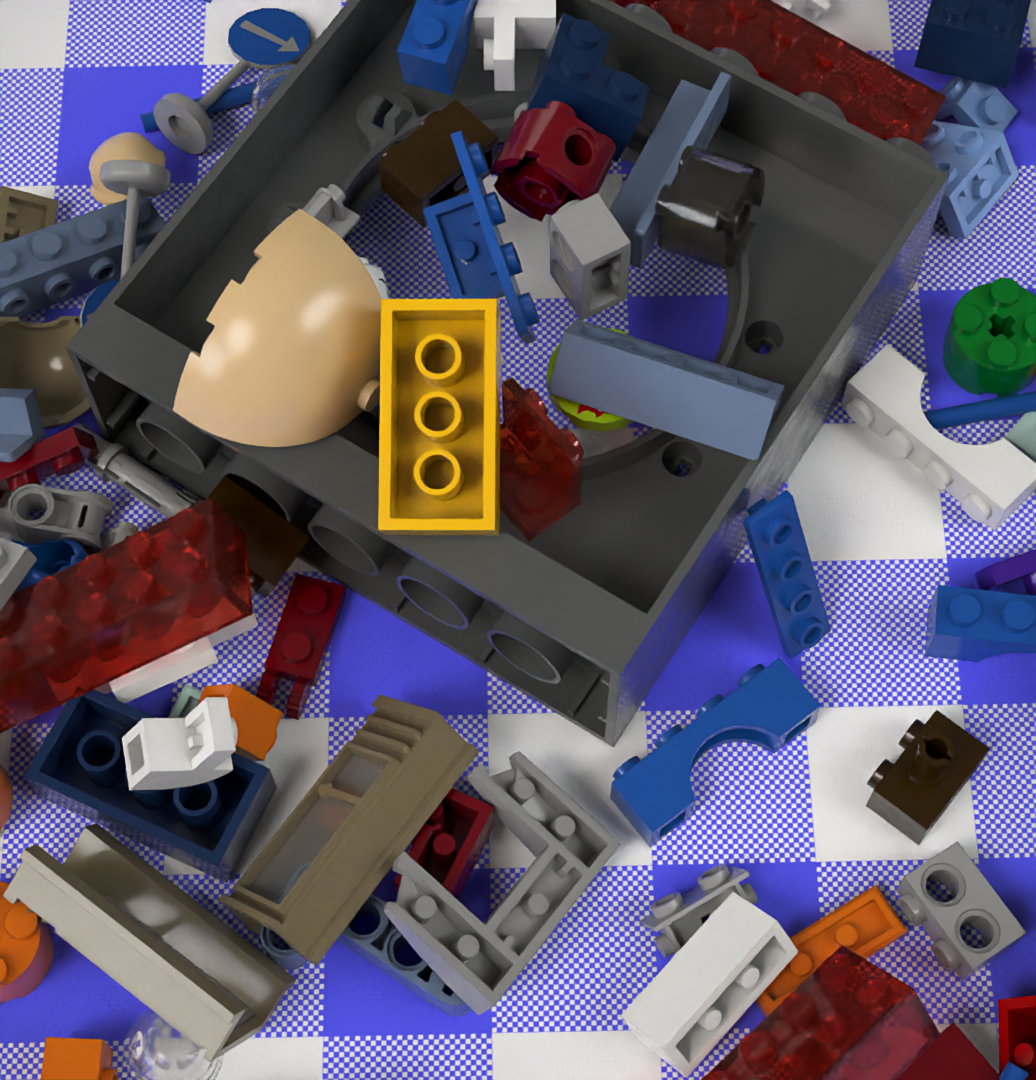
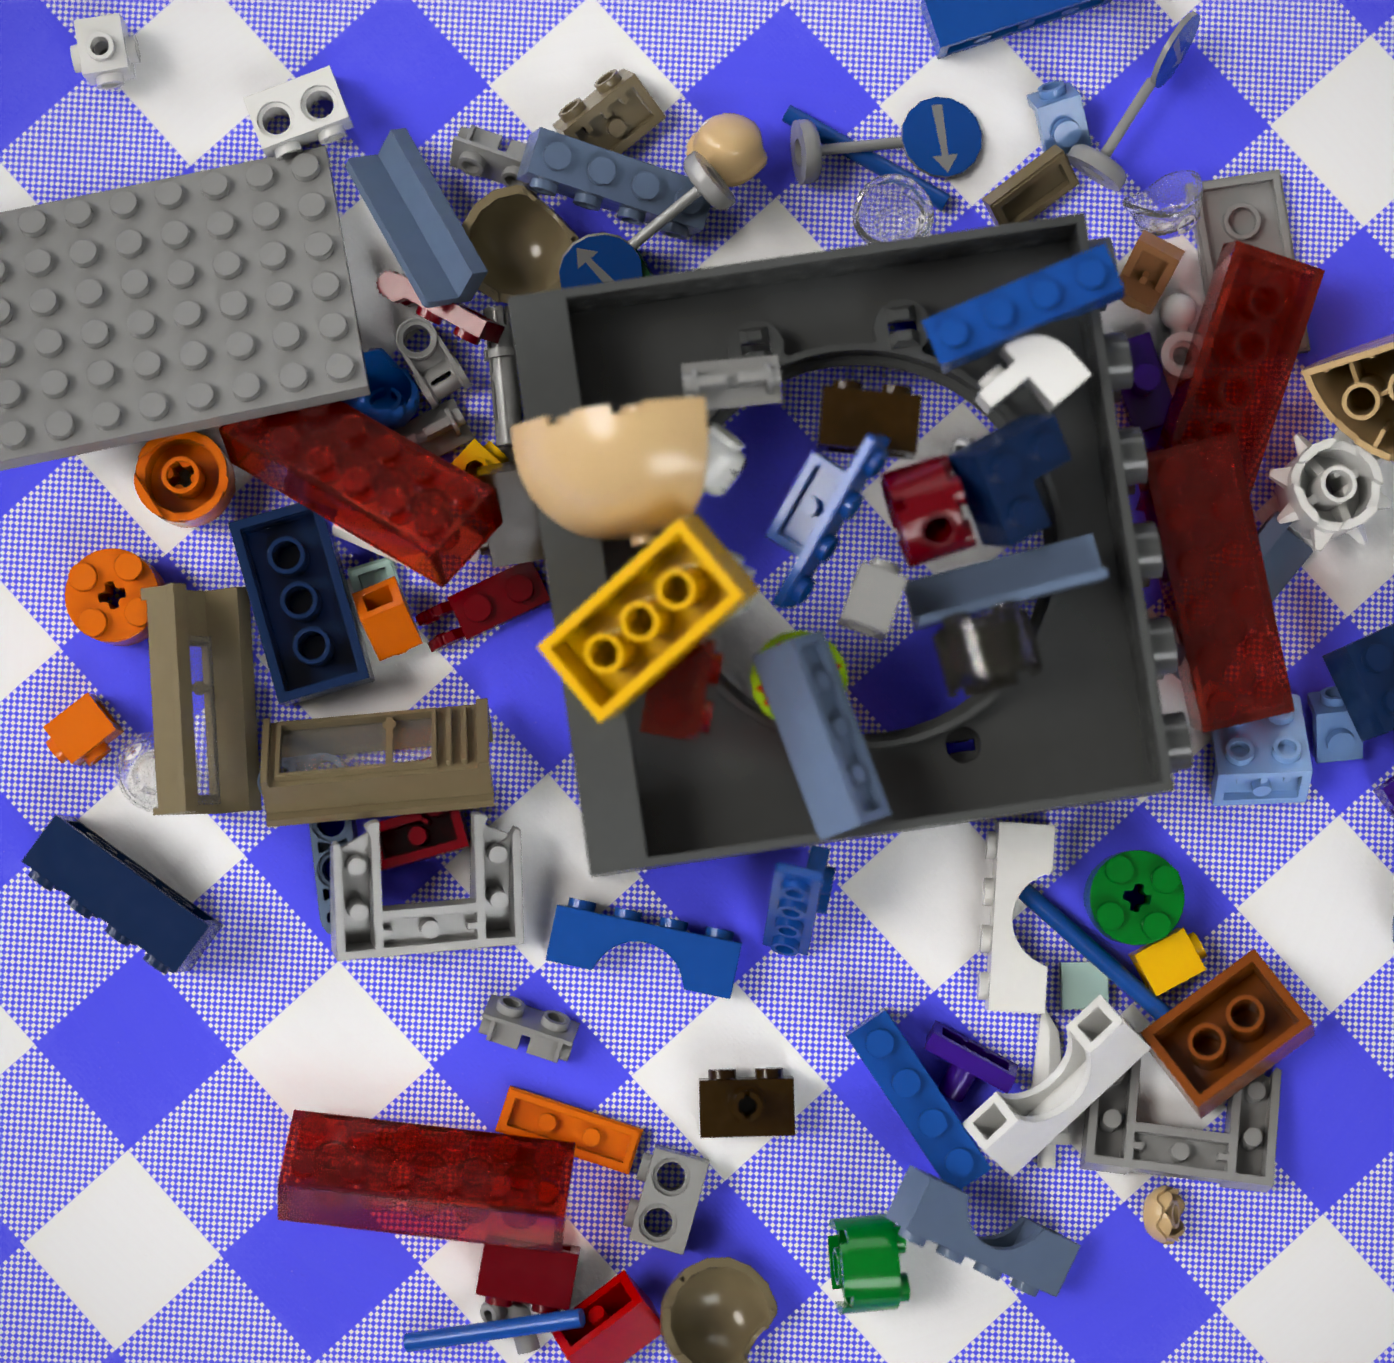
camera: 50 degrees right, 20 degrees up
(181, 750) = (324, 615): white brick -> none
(709, 983) = (478, 1077): white brick -> none

